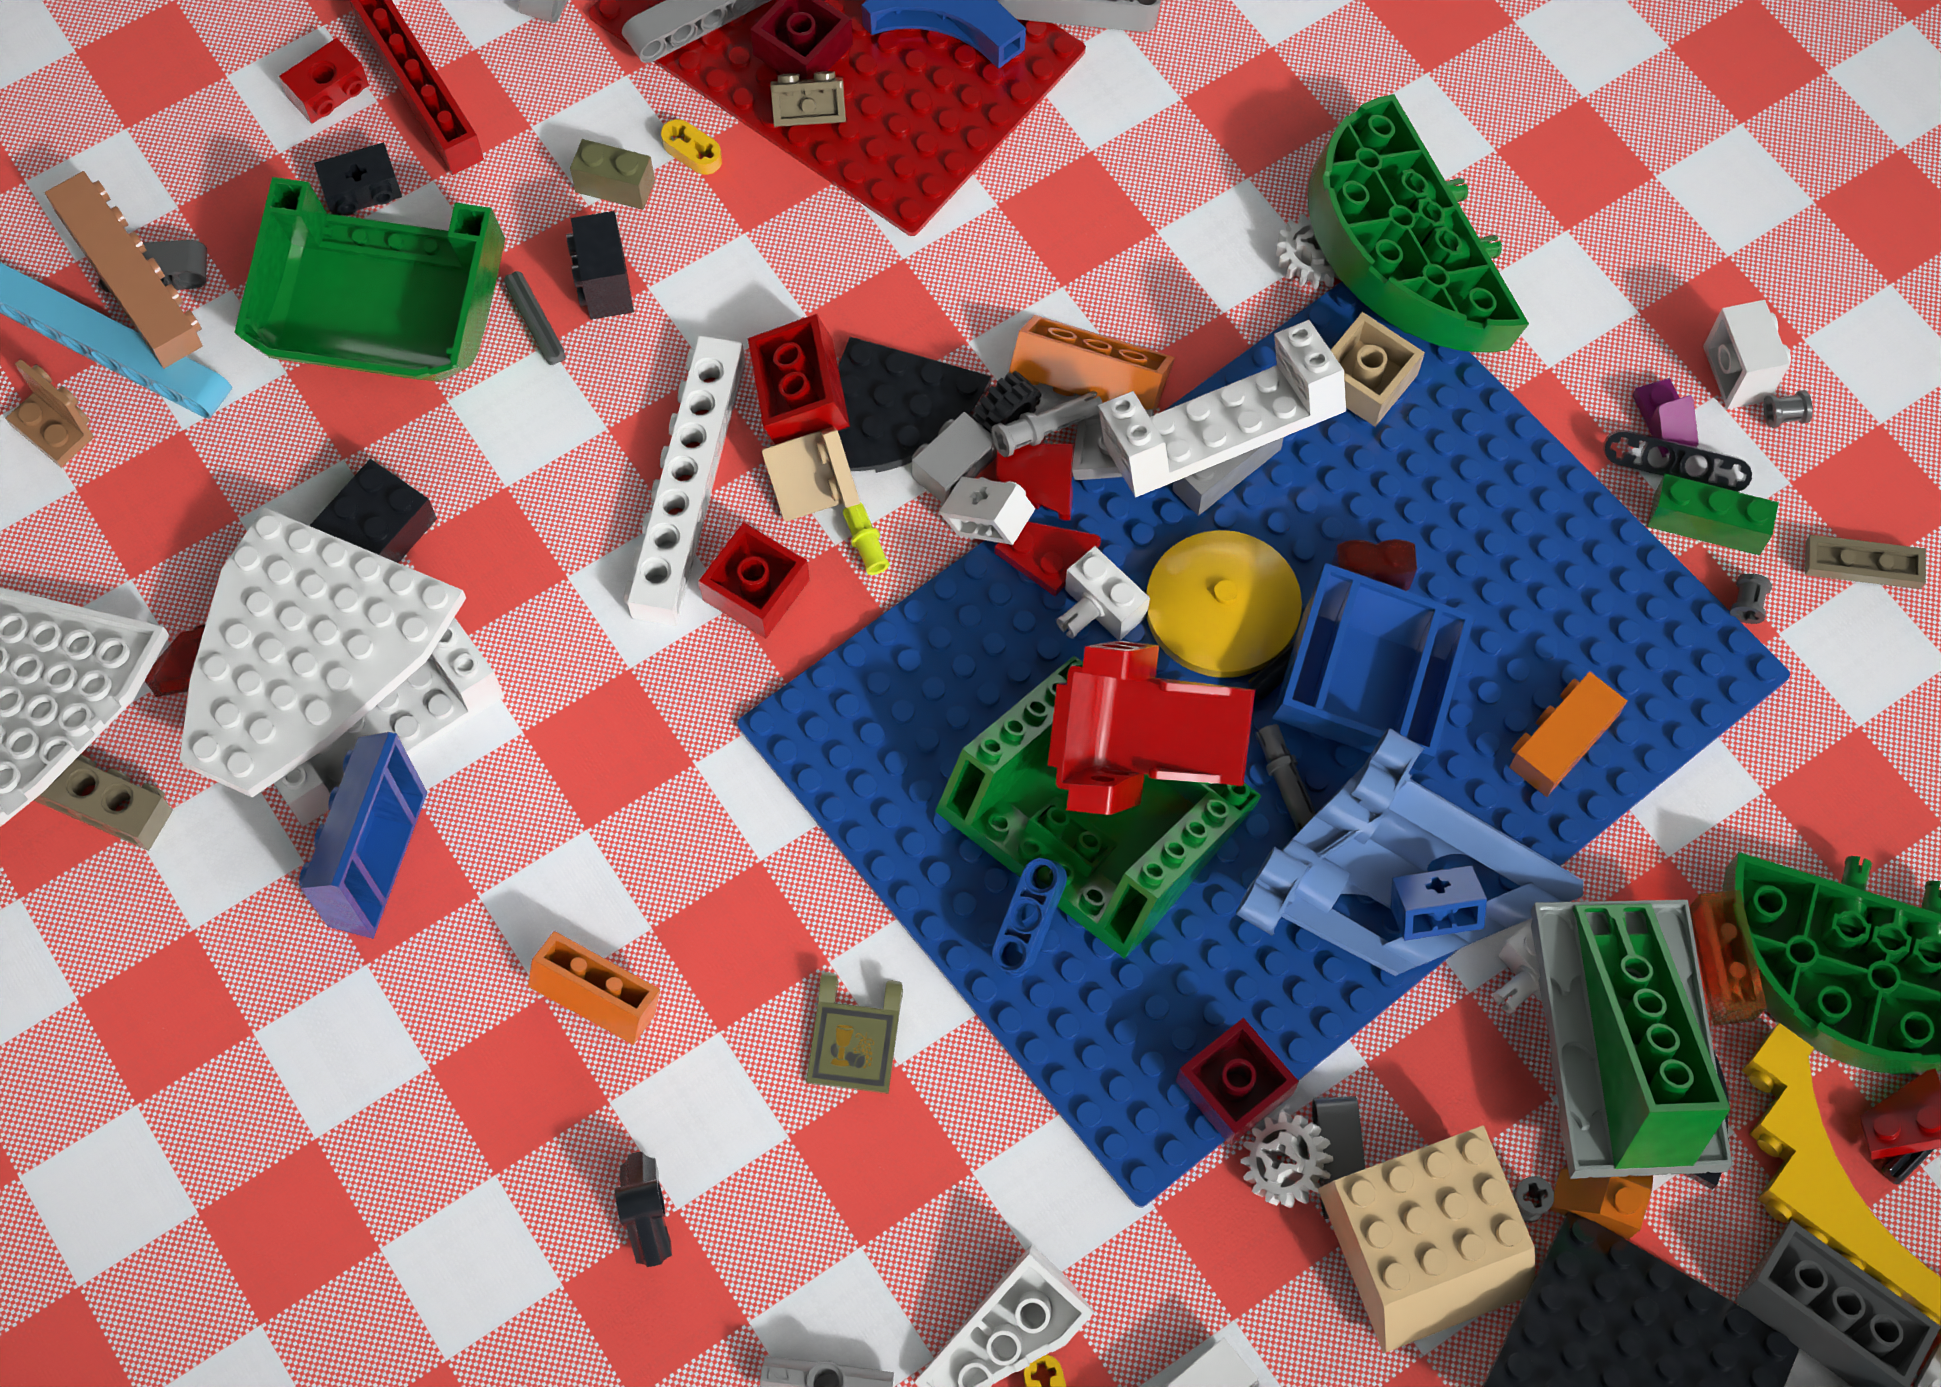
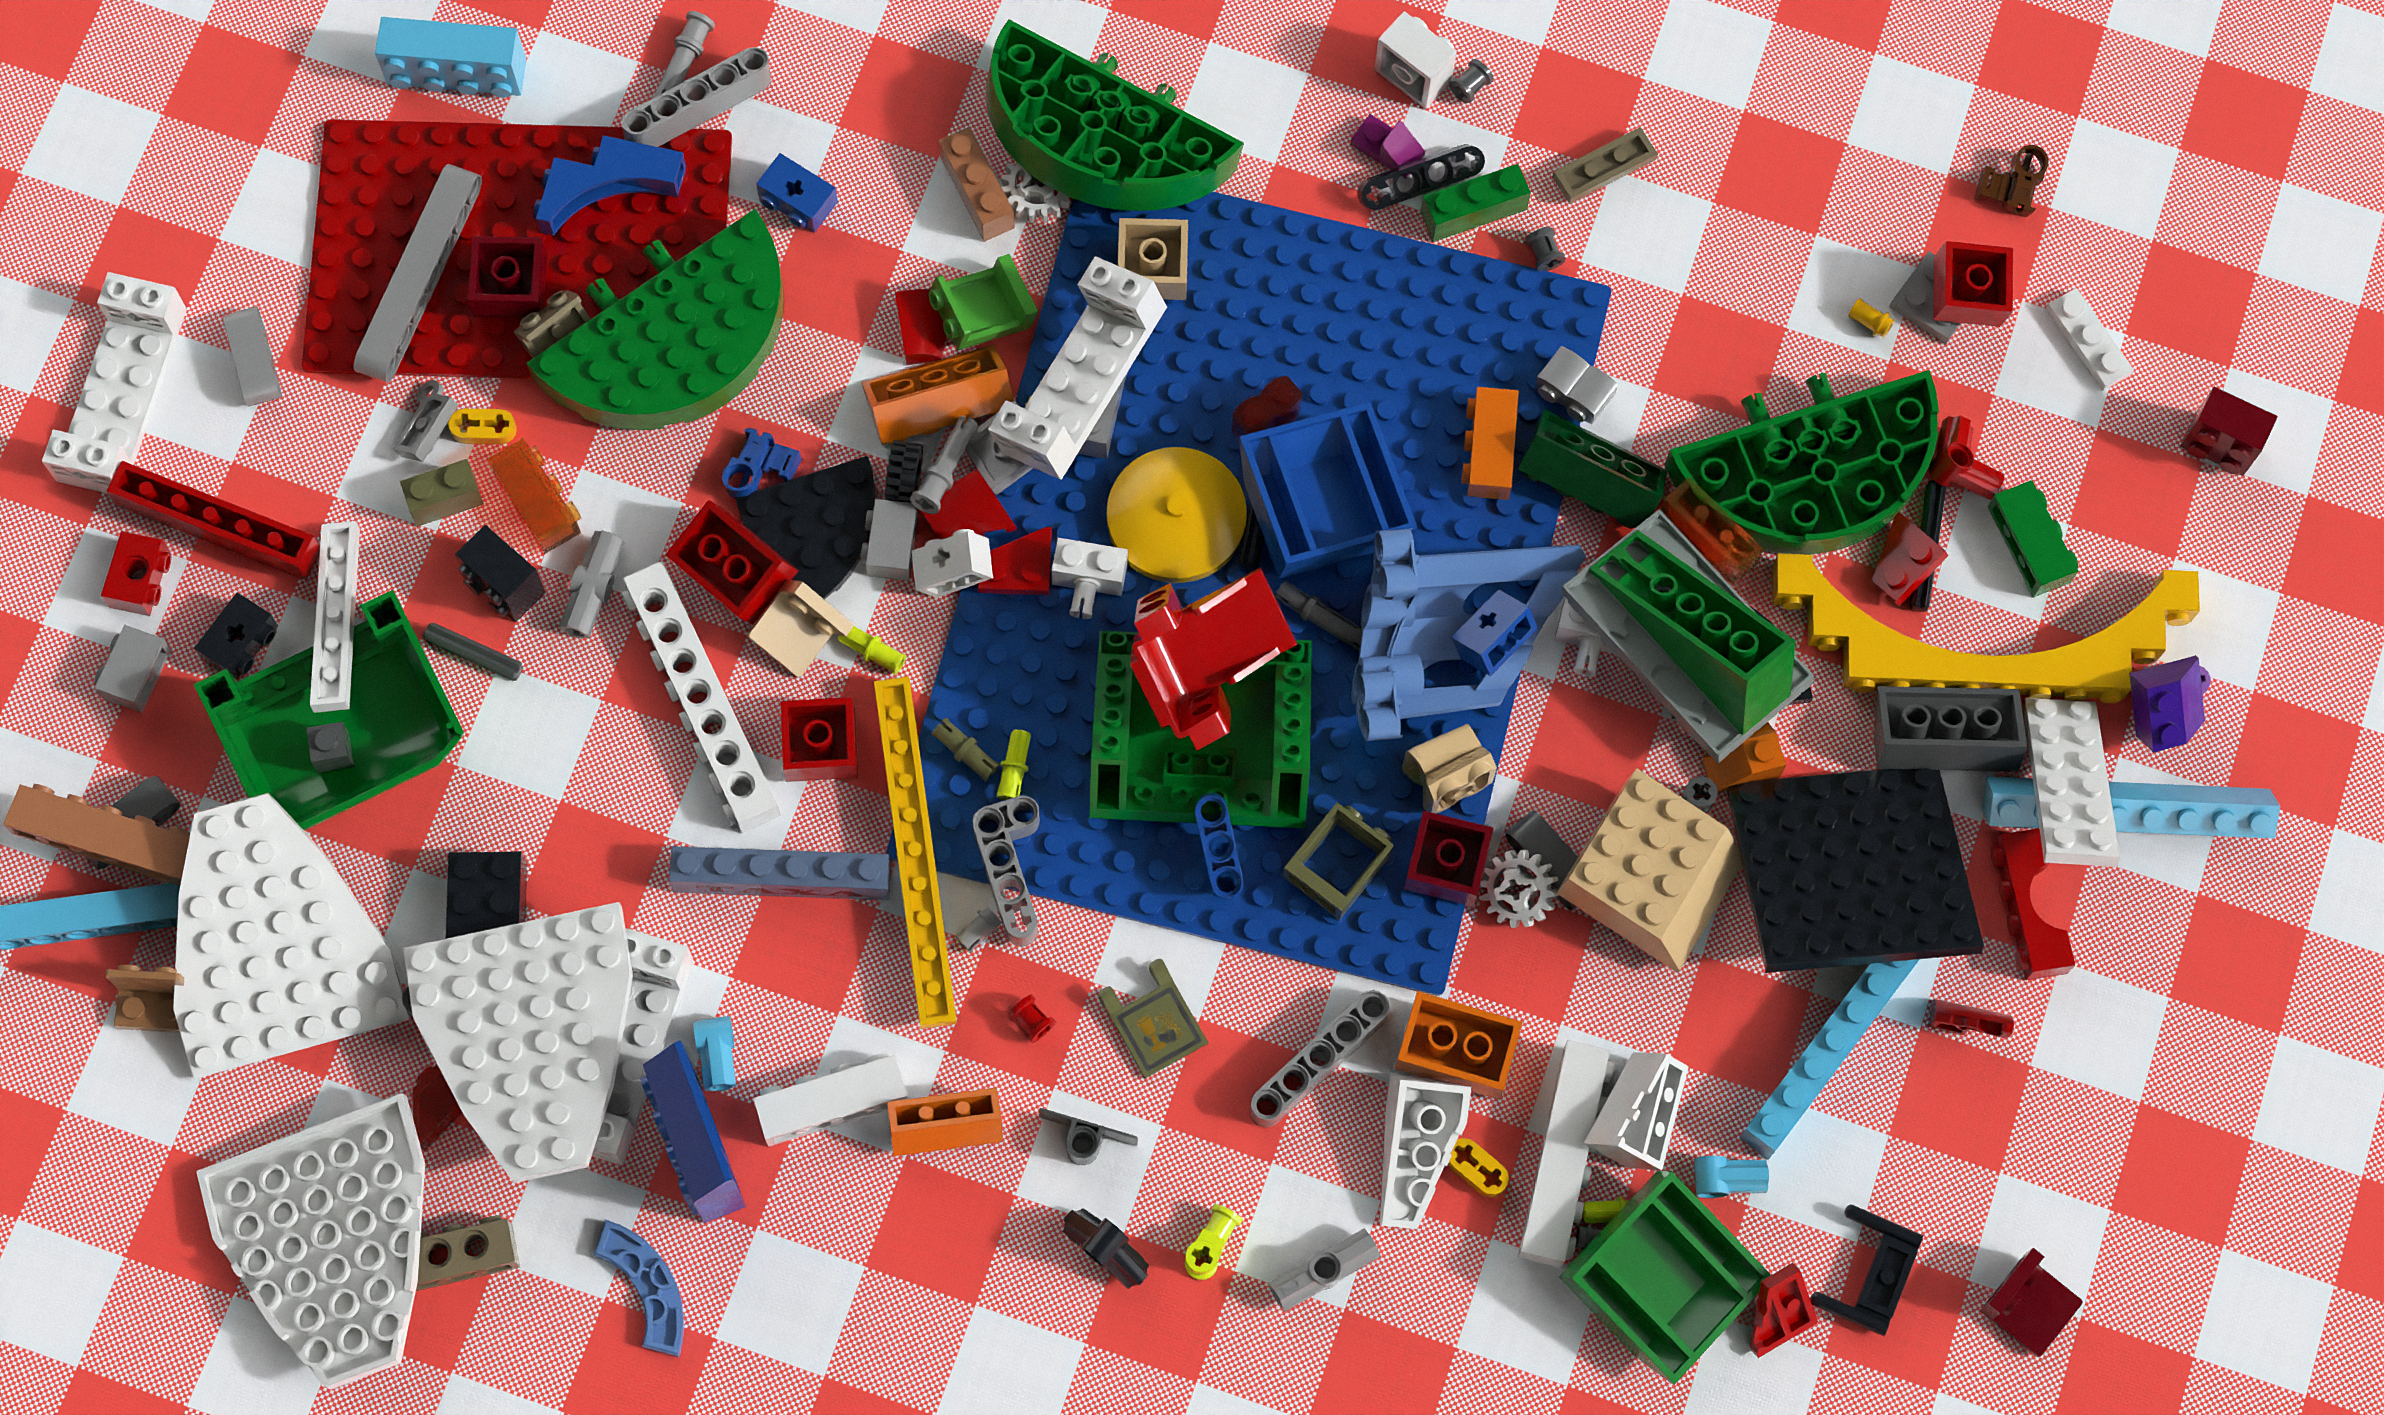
camera: 40 degrees left, 5 degrees up
(168, 431) = (272, 943): none -> white piece
(242, 948) = (653, 1281): none -> medium blue tile
(259, 151) = (132, 668): none -> light grey brick
(352, 312) = (330, 747): none -> dark grey brick
(432, 219) = (335, 617): none -> white plate
(458, 776) = (715, 1043): none -> medium azure piece
(514, 896) = (829, 1100): none -> white brick
(632, 671) = (780, 873): none -> sand blue brick
(656, 112) = (426, 422): none -> light grey hinge
(673, 327) = (592, 584): none -> light grey piece
(686, 226) = (535, 495): none -> clear orange brick
(706, 1083) = (1088, 1130): none -> dark grey piece
(742, 1278) = (1211, 1242): none -> neon yellow connector
(745, 953) = (1031, 1018): none -> red bush
(756, 736) = (915, 853): none -> yellow plate
(763, 842) = (978, 929): none -> light grey pin
(828, 809) = (1010, 873): none -> light grey beam
(873, 676) = (965, 749): none -> olive pin
(893, 314) = (764, 455): none -> blue piece
(904, 175) = (675, 341): none -> green brick
(904, 720) = (1014, 765): none -> neon yellow axle
(992, 1167) = (1326, 1042): none -> light grey beam
(1100, 126) = (788, 178): none -> blue brick
(1115, 1265) = (1458, 1044): none -> orange brick
(1128, 299) = (920, 327): none -> red slope
(1172, 982) = (1315, 886): none -> olive window
(1188, 315) = (983, 304): none -> bright green panel
(1262, 214) = (976, 184): none -> nougat brick
(1300, 998) = (1449, 768): none -> tan piece
(1648, 822) = (1592, 470): none -> dark green slope
(1689, 735) = (1576, 385): none -> light grey brick

